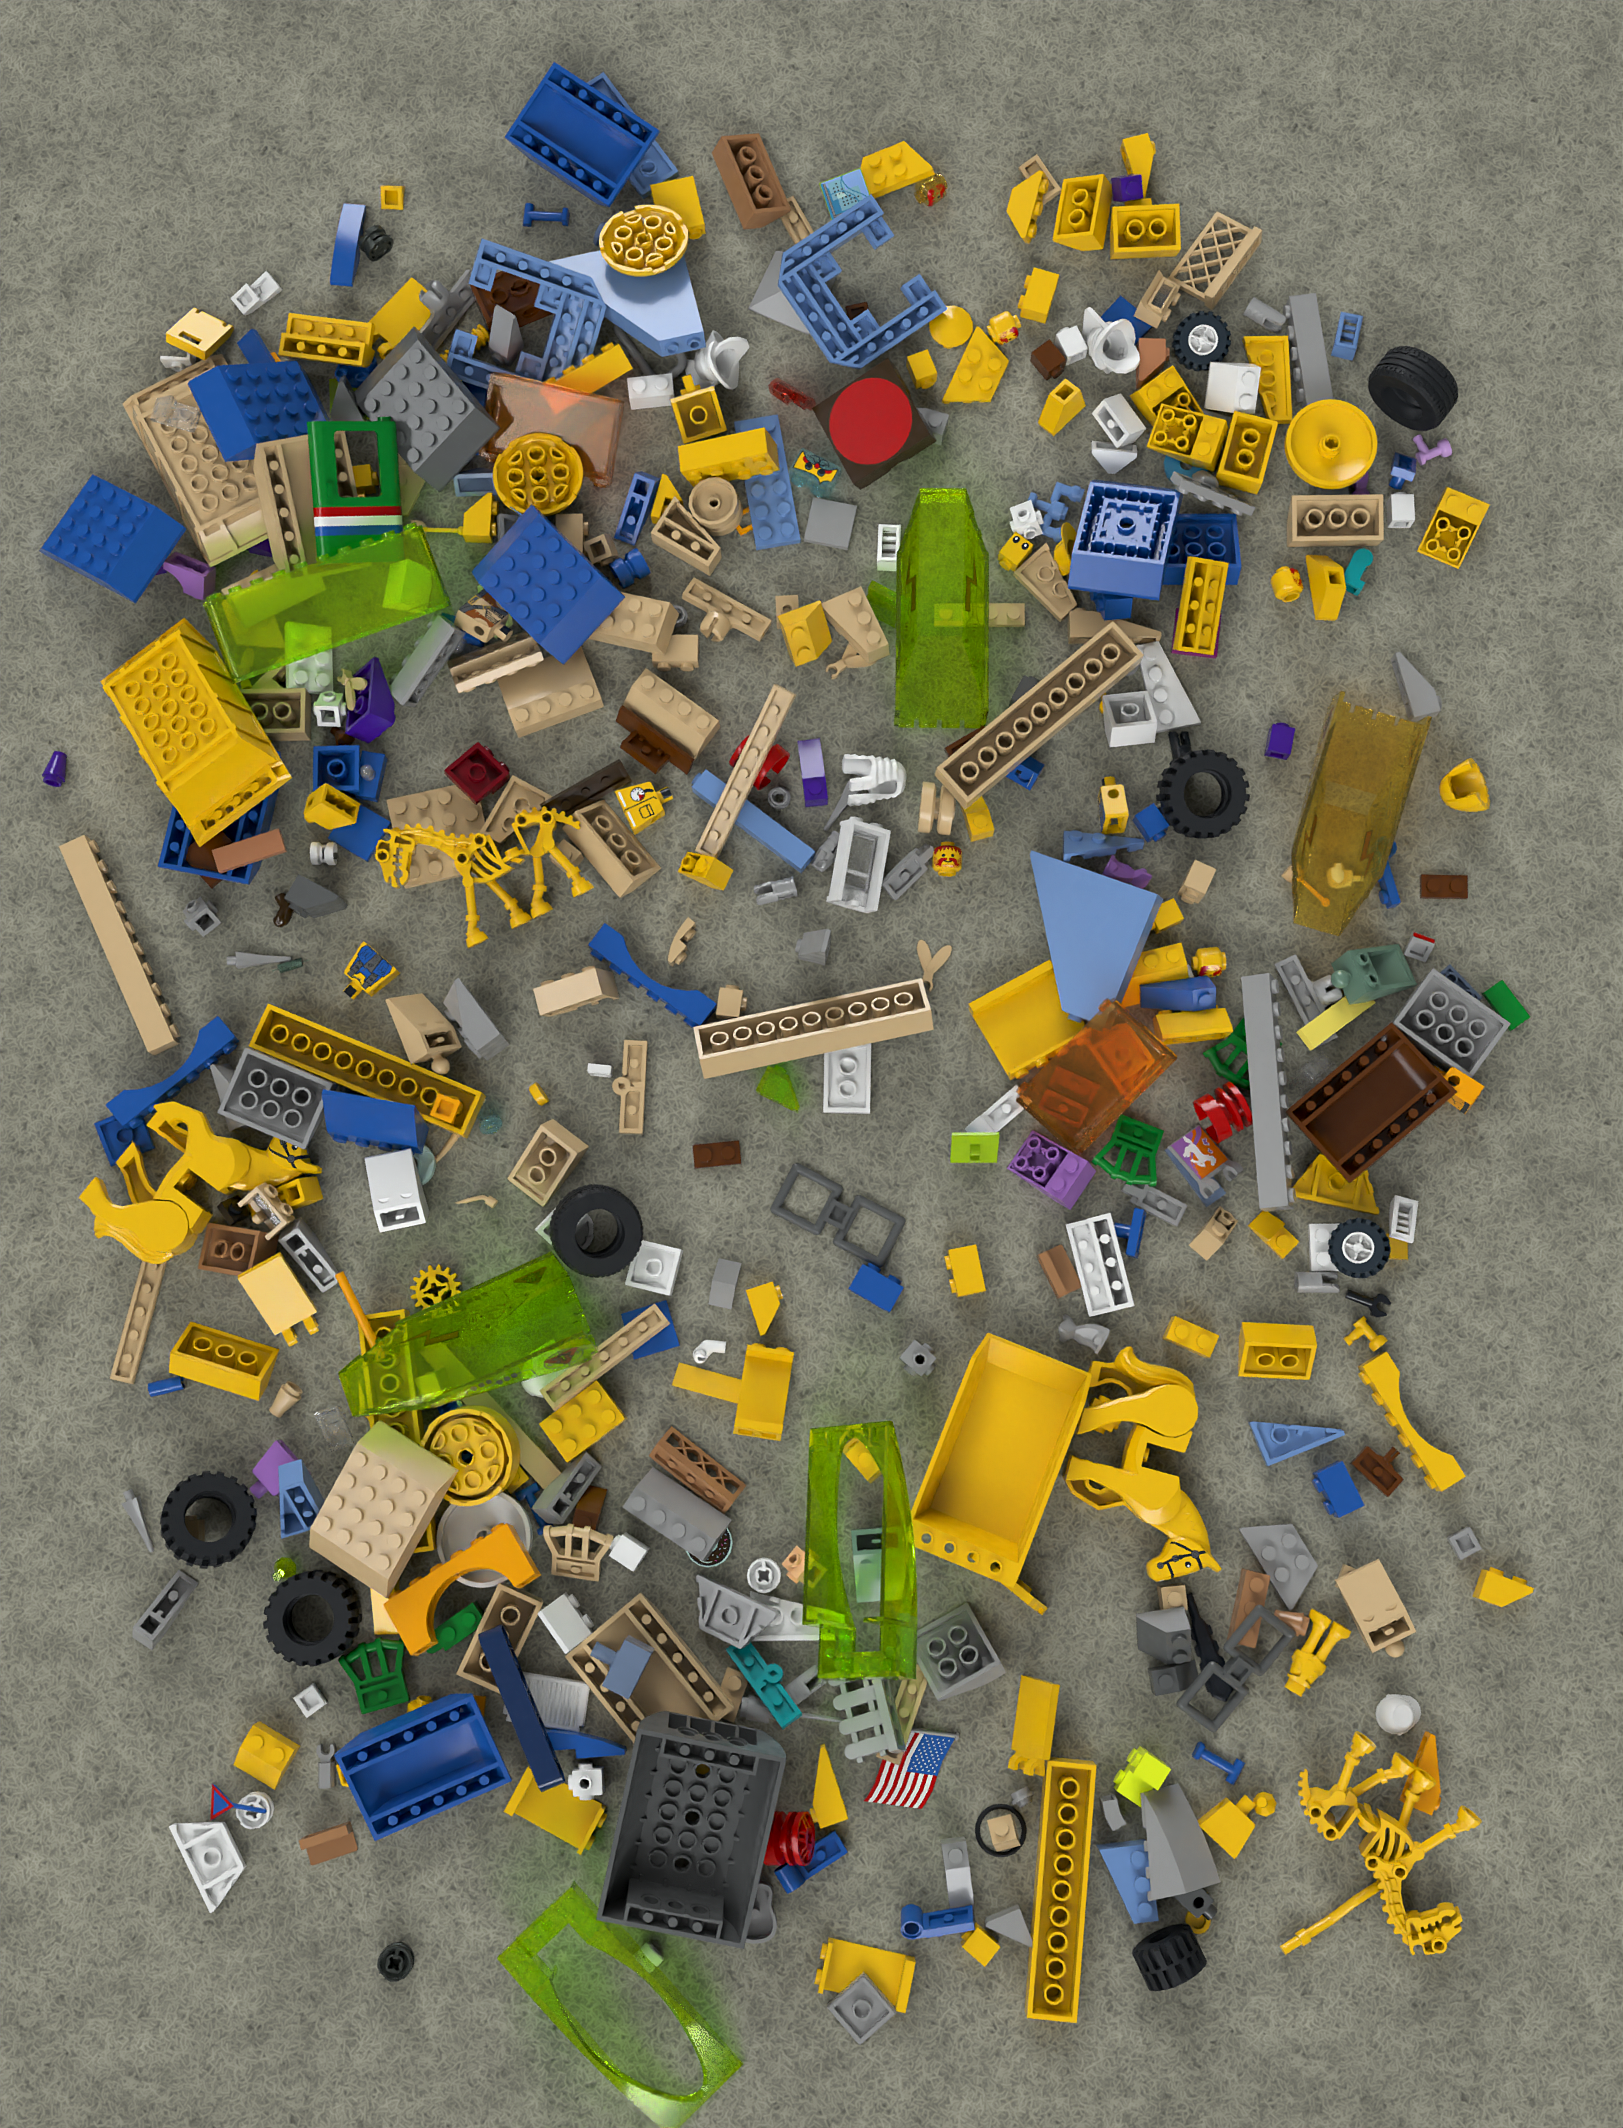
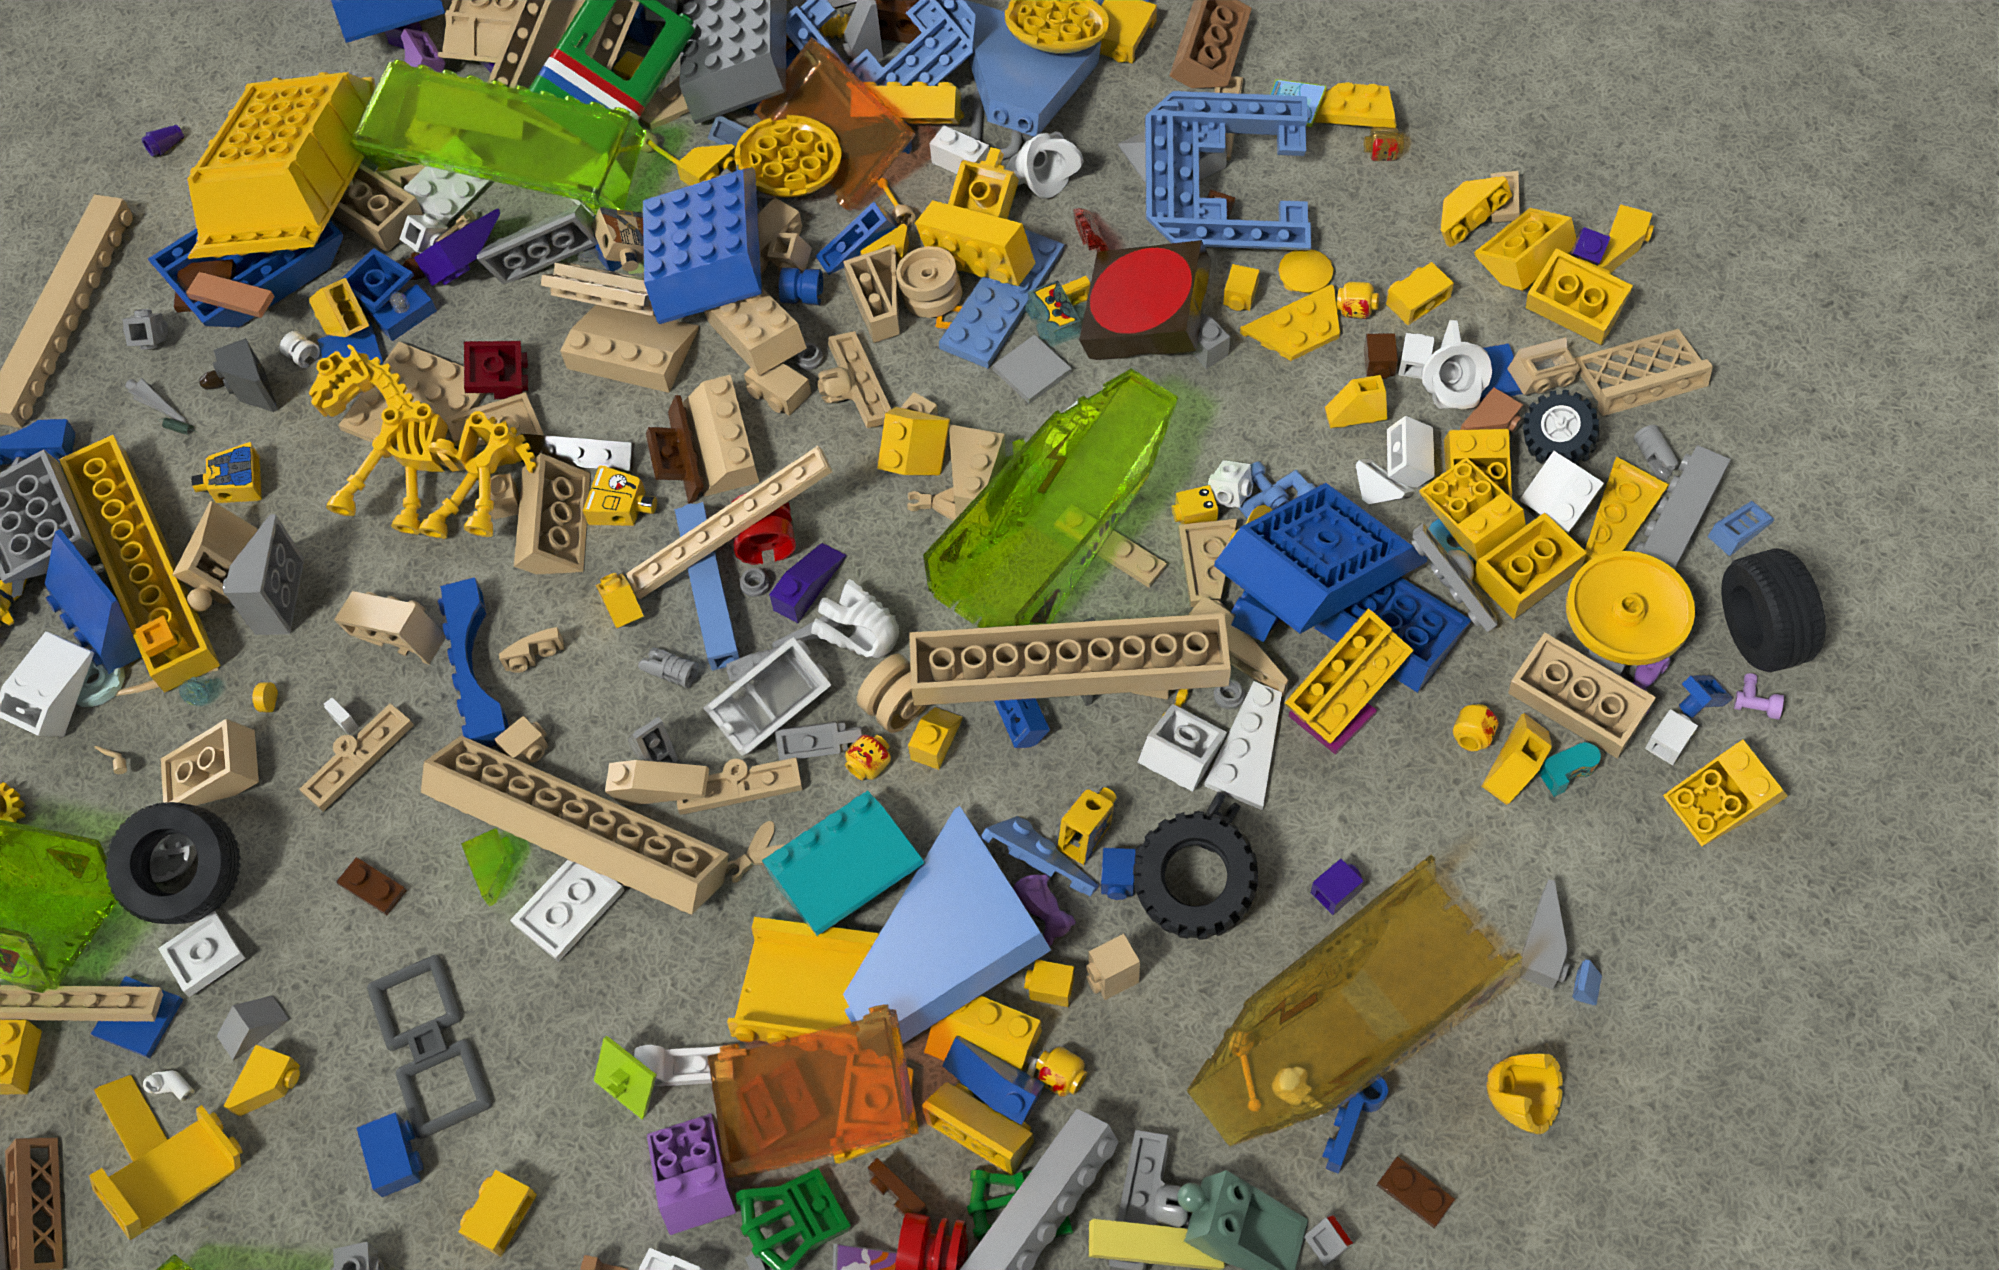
camera: 40 degrees right, 20 degrees down
(647, 465) = (902, 211): none -> tan hinge
(817, 444) = (1077, 290): none -> yellow tile
(839, 967) = (655, 782): none -> tan slope
(883, 933) = (741, 785): none -> tan hinge
(993, 934) = (842, 862): none -> teal slope
(1183, 1095) = (886, 1181): none -> reddish brown plate
(1452, 700) = (1587, 983): none -> medium blue slope

